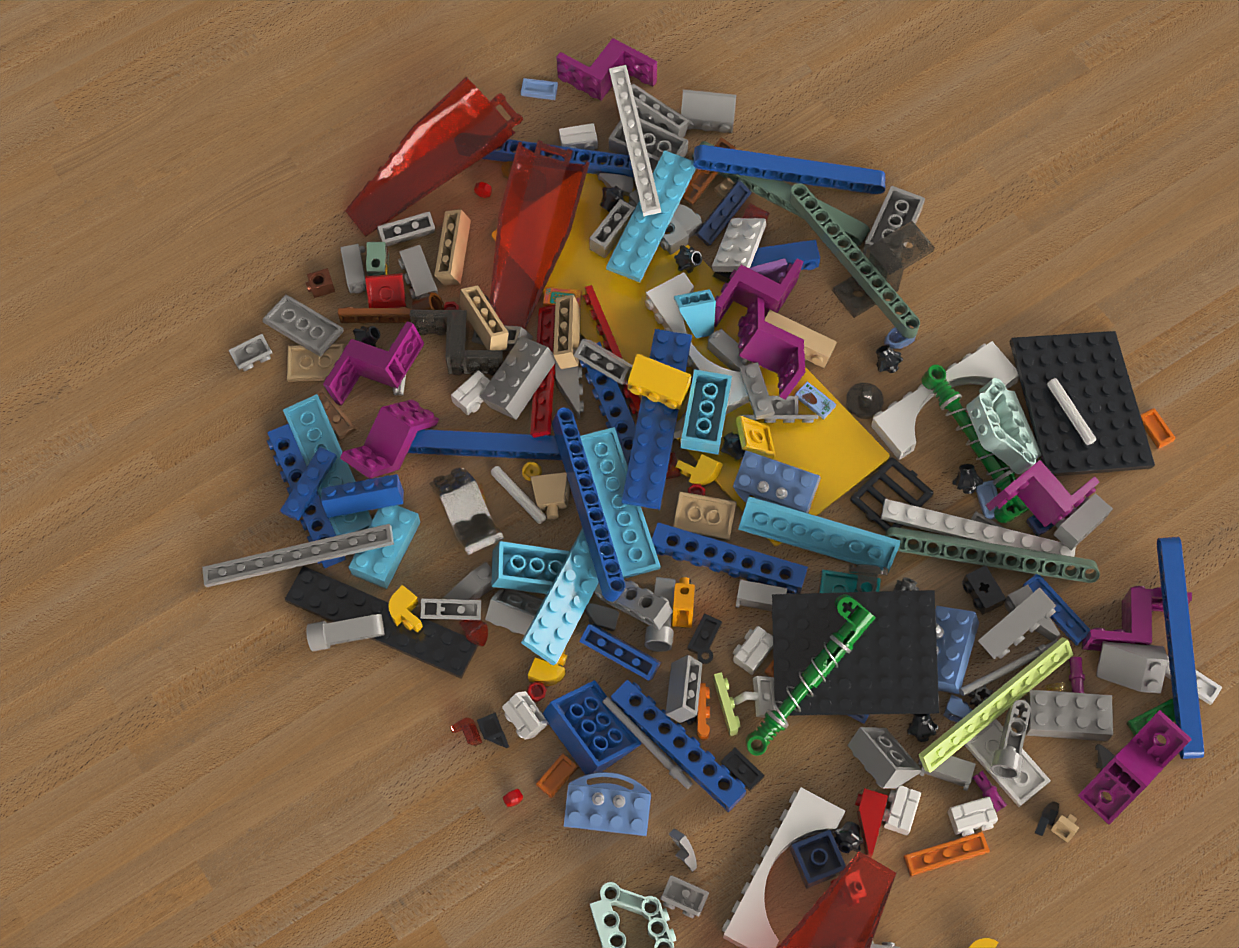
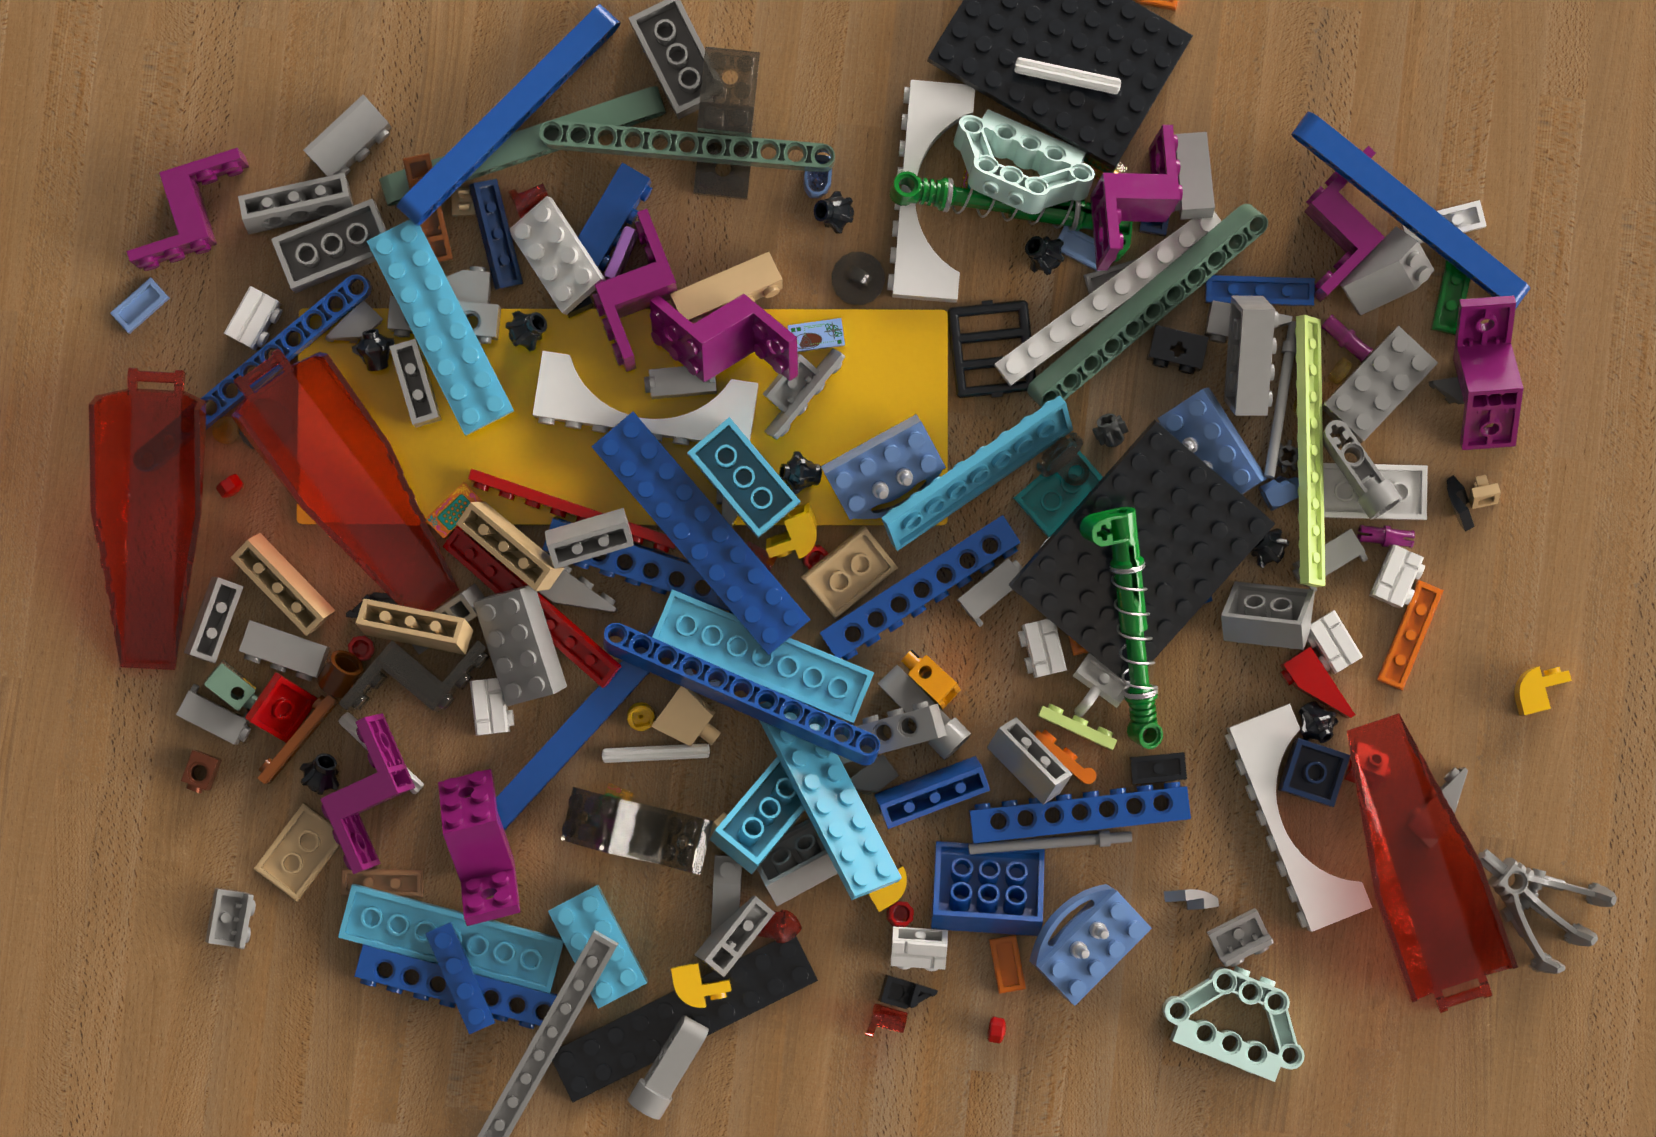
camera: 55 degrees left, 20 degrees up
(303, 325) = (240, 832): light grey tile -> none
(362, 495) = (528, 932): blue brick -> none
(635, 141) = (326, 266): white plate -> none
(659, 382) = (672, 506): yellow slope -> none
(698, 311) = (610, 382): medium azure slope -> none
(704, 638) = (986, 688): black hinge -> none
(755, 437) = (811, 444): yellow tile -> none
(756, 391) = (759, 396): light grey plate -> none

